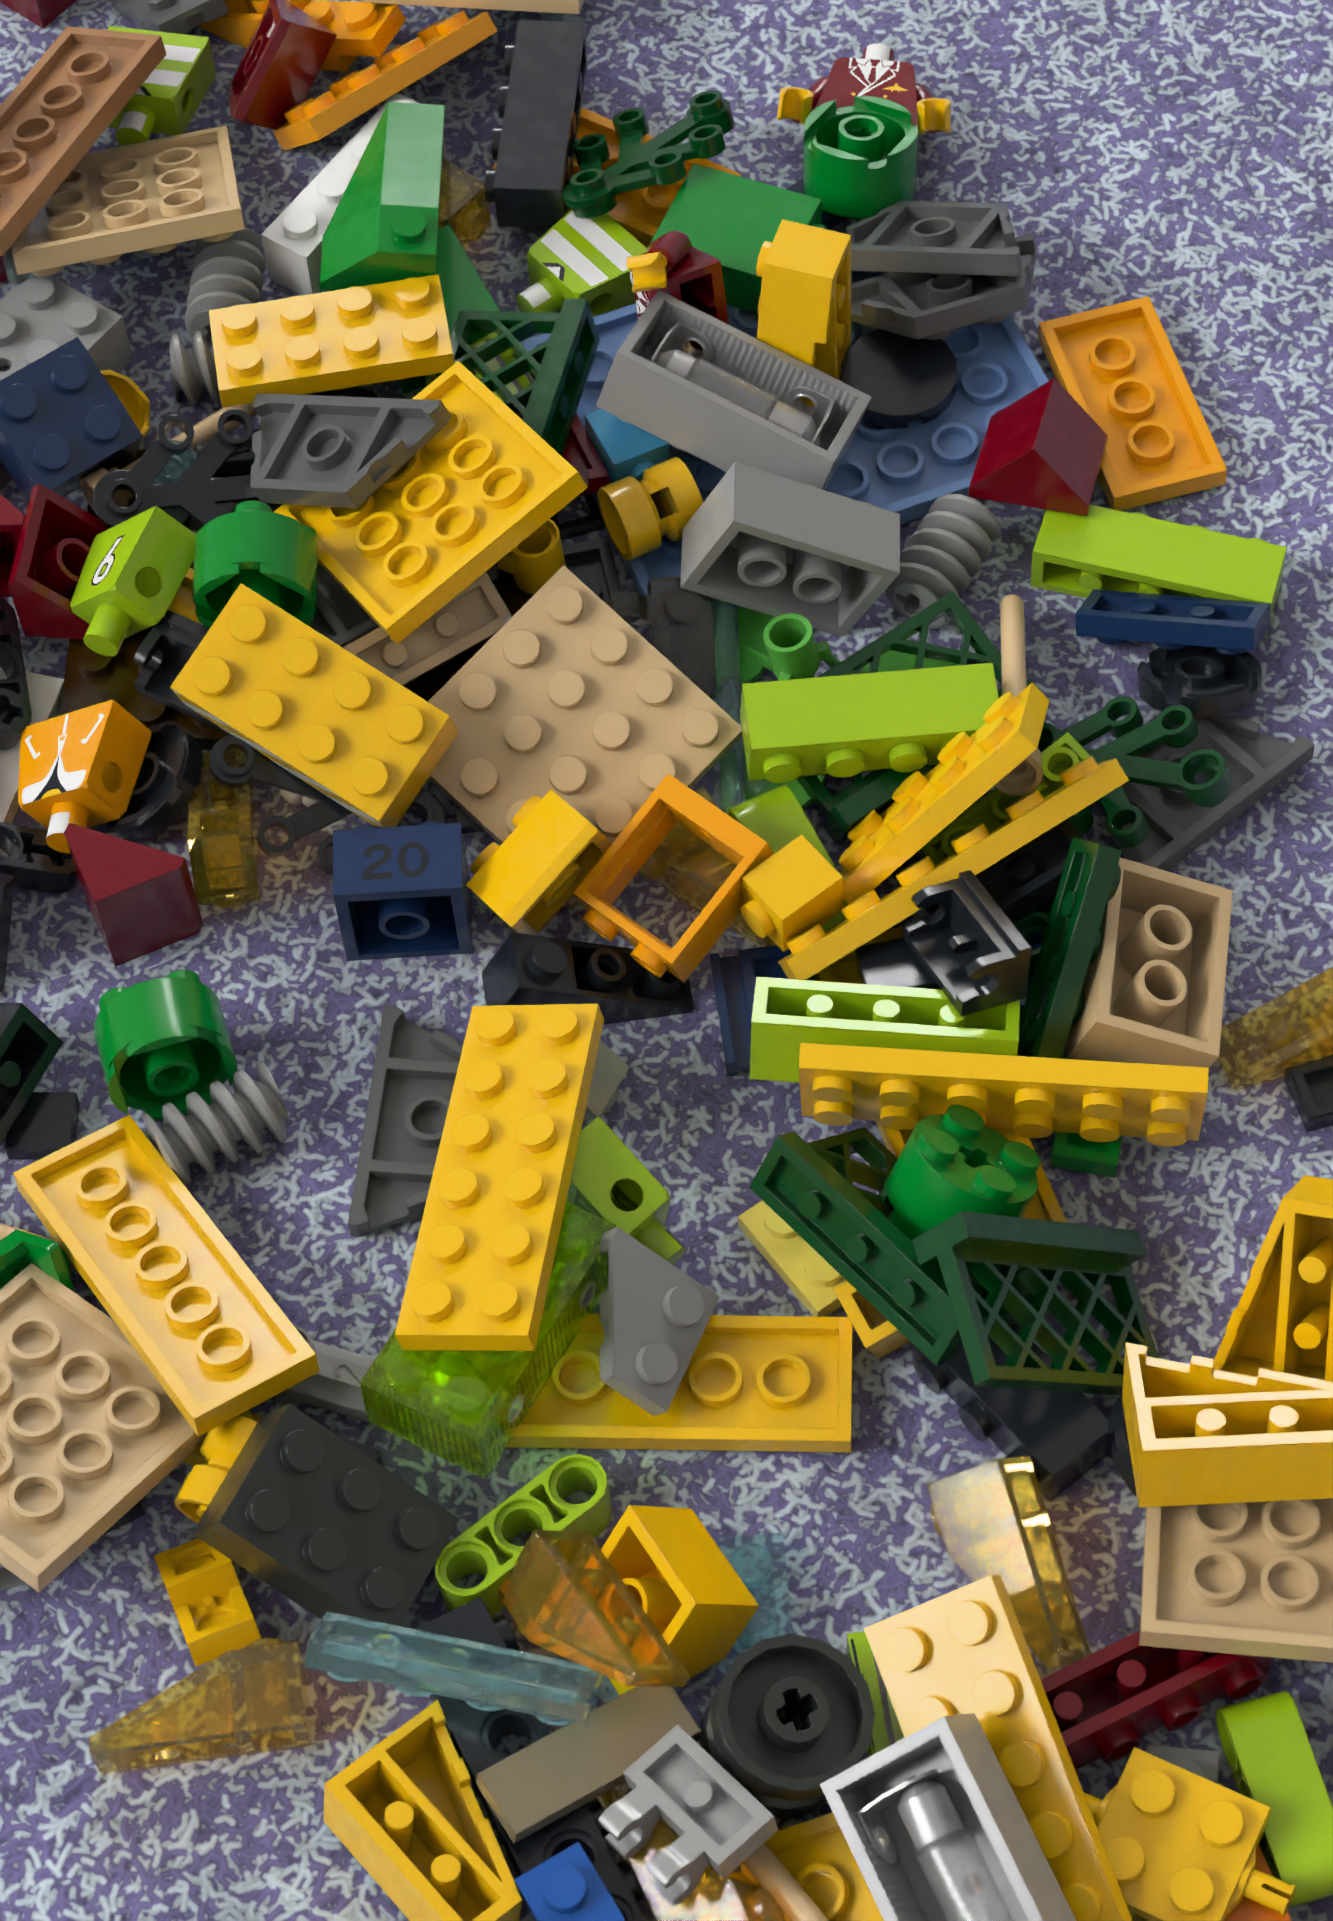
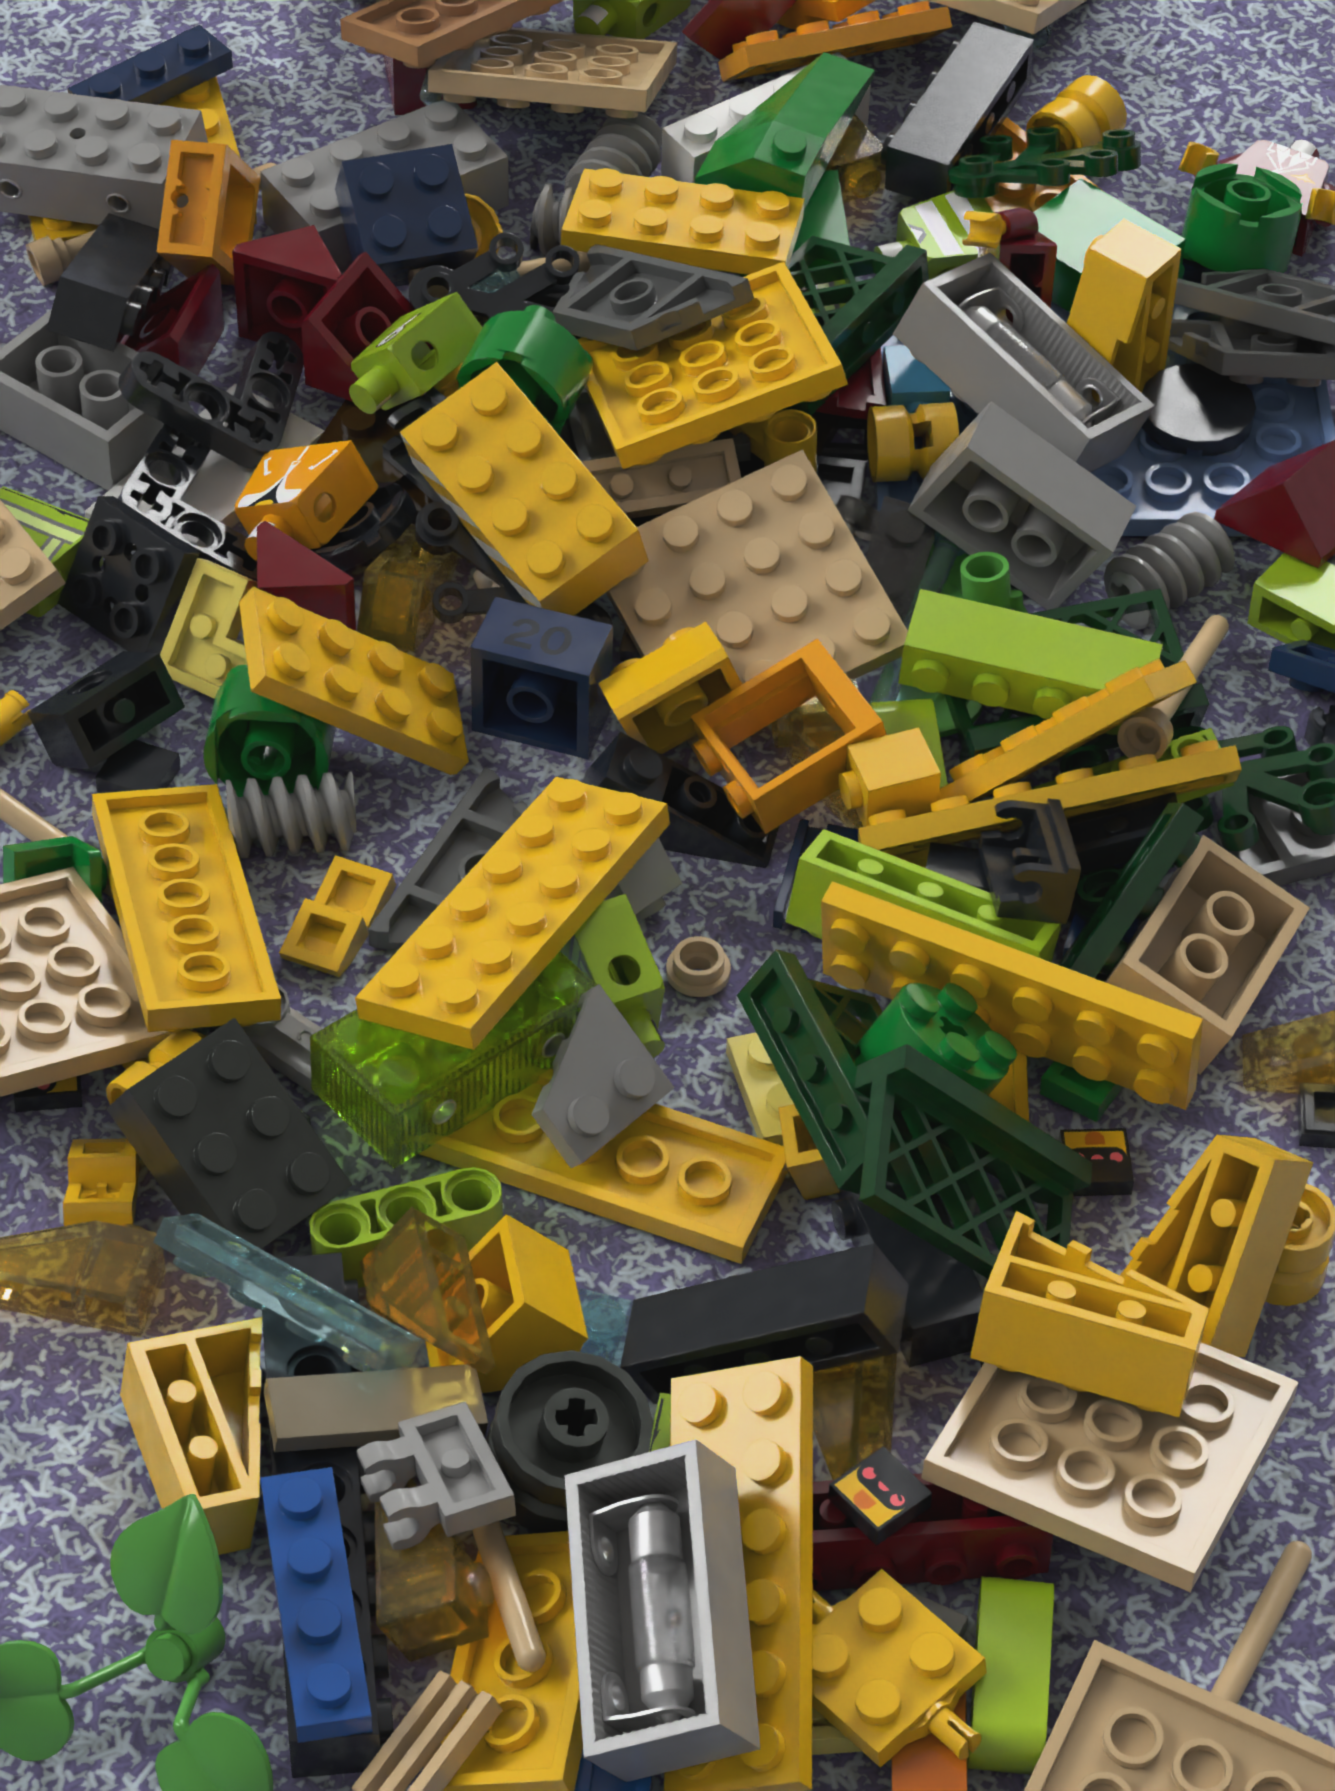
camera: 15 degrees right, 10 degrees down
(47, 954) = (206, 628): none -> light yellow plate
(224, 966) = (352, 681): none -> yellow plate
(308, 1217) = (337, 921): none -> yellow slope
(658, 81) = (1082, 112): none -> yellow wheel
(677, 1131) = (702, 954): none -> tan plate
(922, 1531) = (816, 1308): none -> black brick
(1107, 1677) = (879, 1495): none -> black tile
(1136, 1209) = (1110, 1157): none -> black tile

